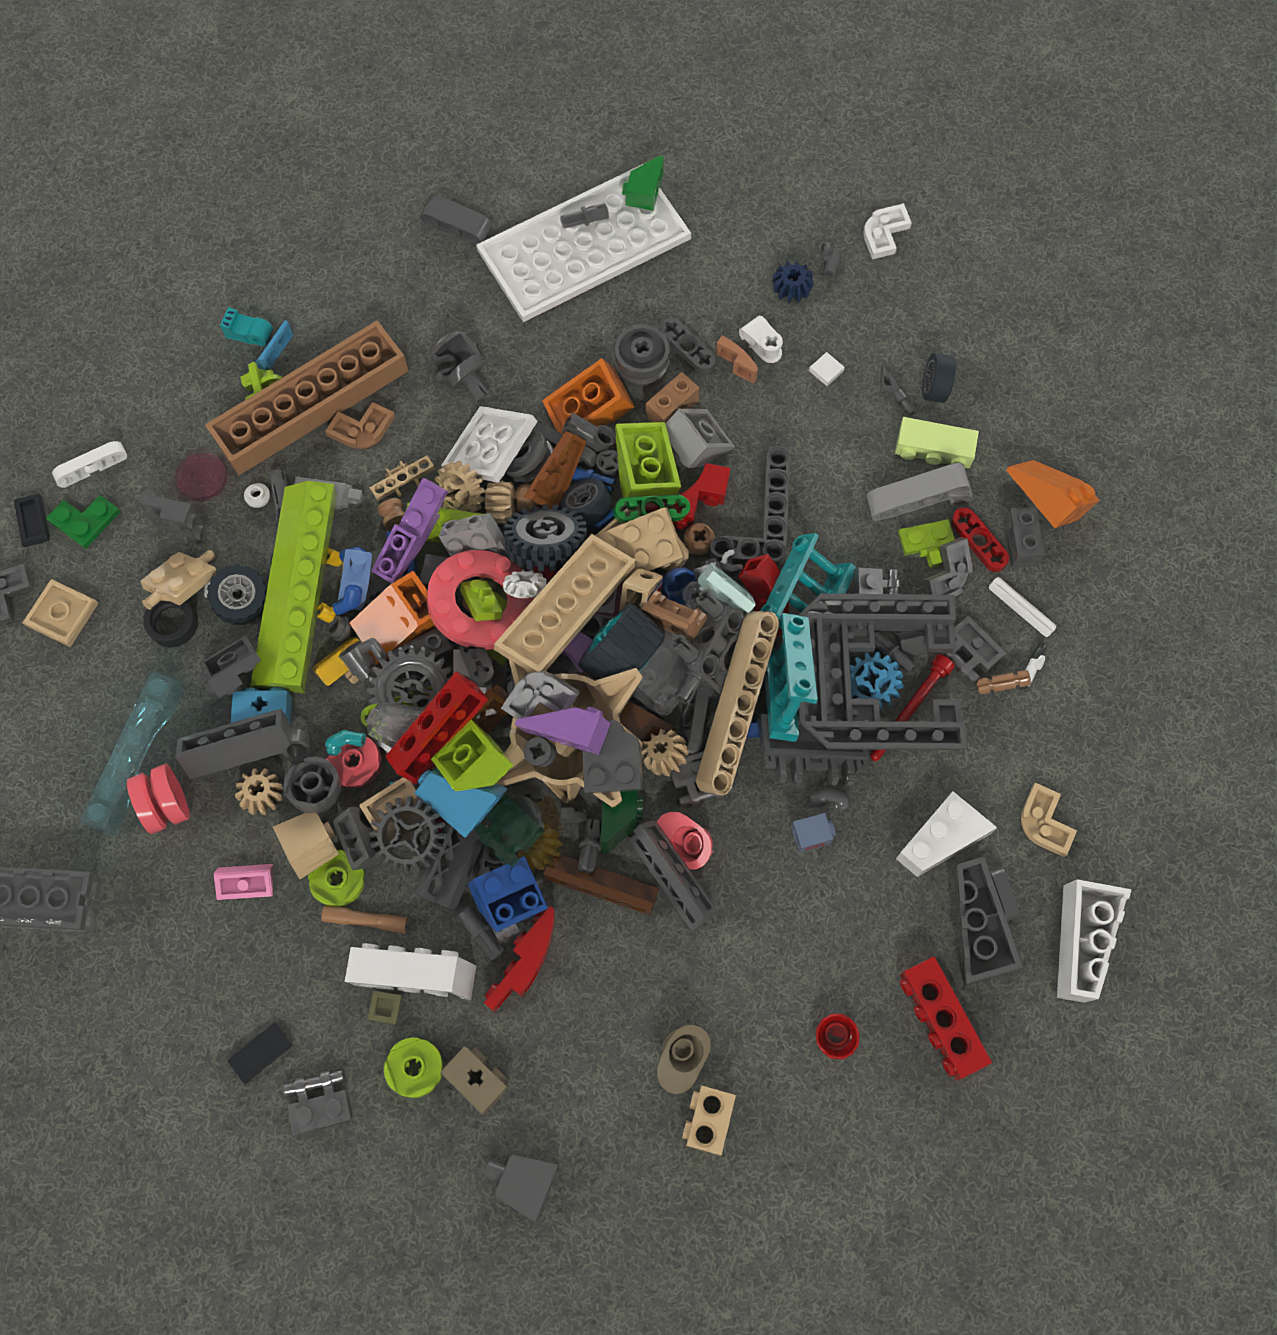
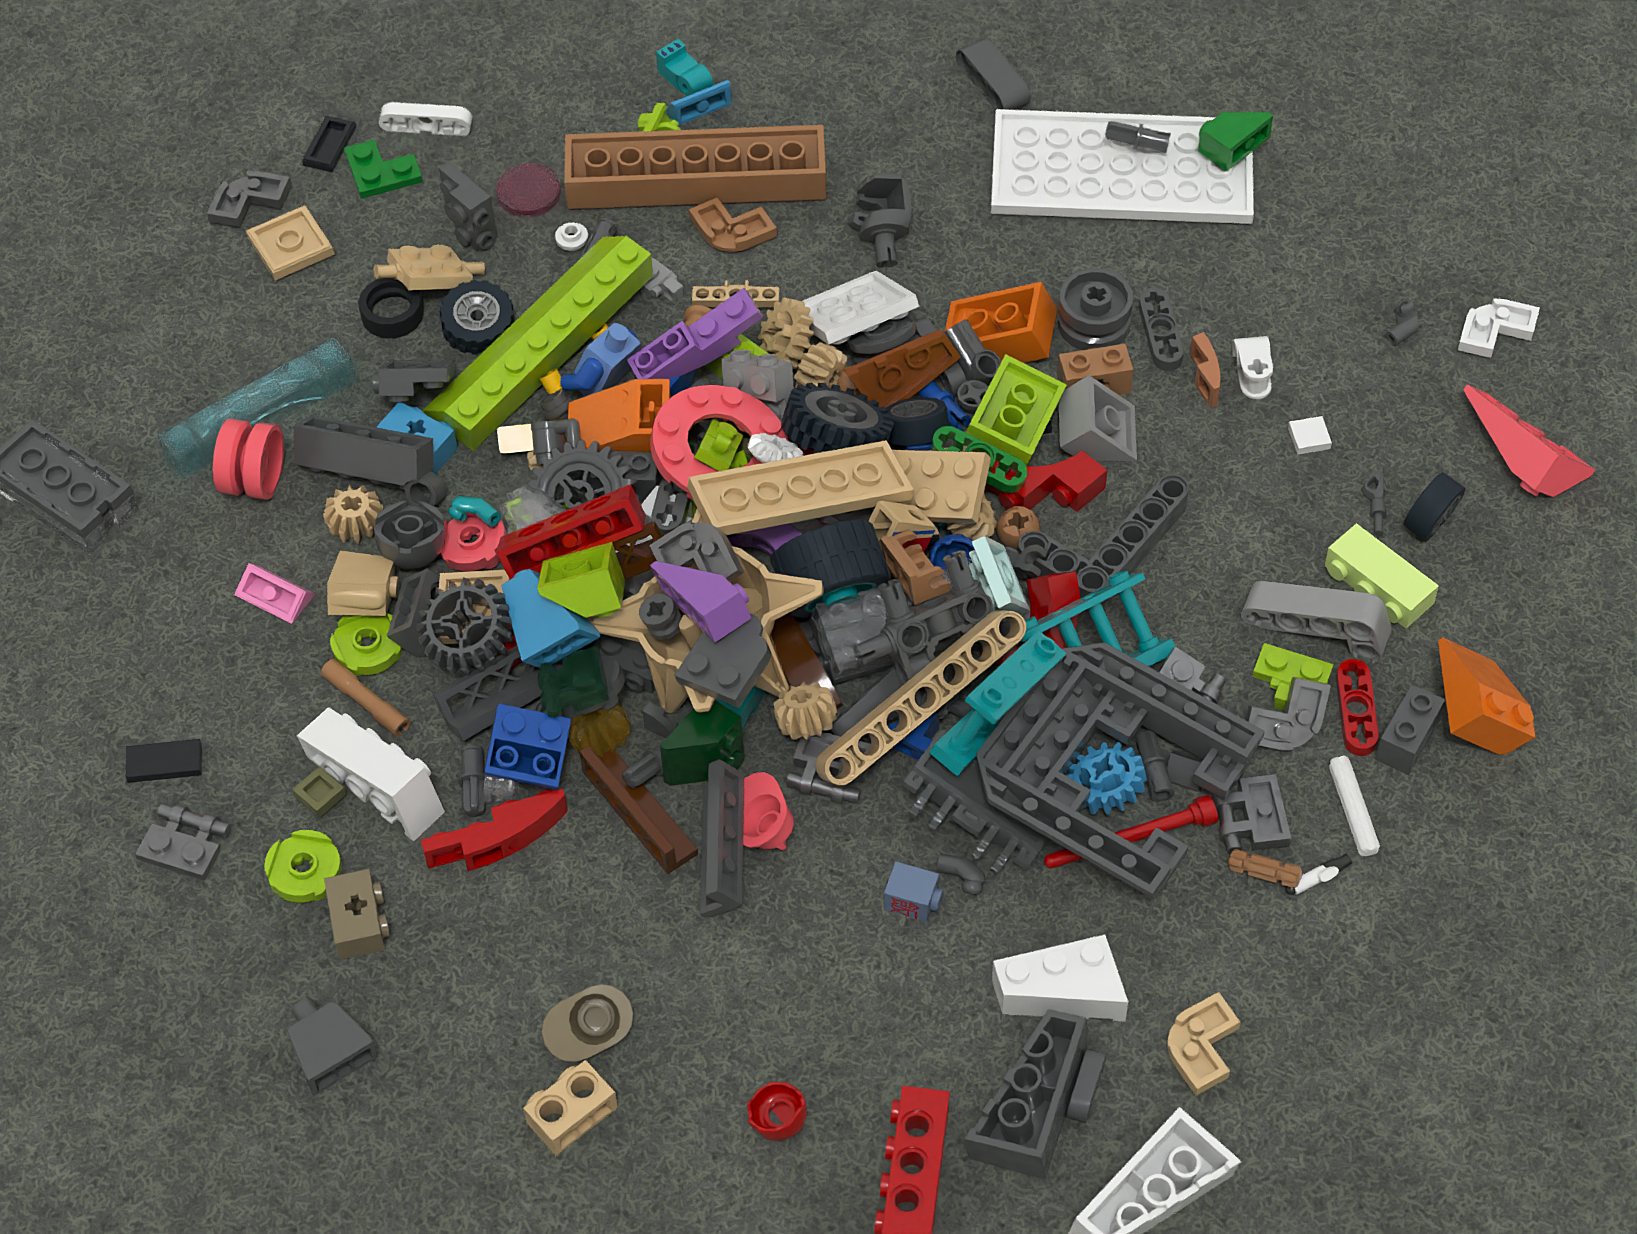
camera: 35 degrees right, 15 degrees down
(792, 281) = (1337, 323): dark blue gear -> none
(974, 311) = (1527, 452): none -> coral wedge

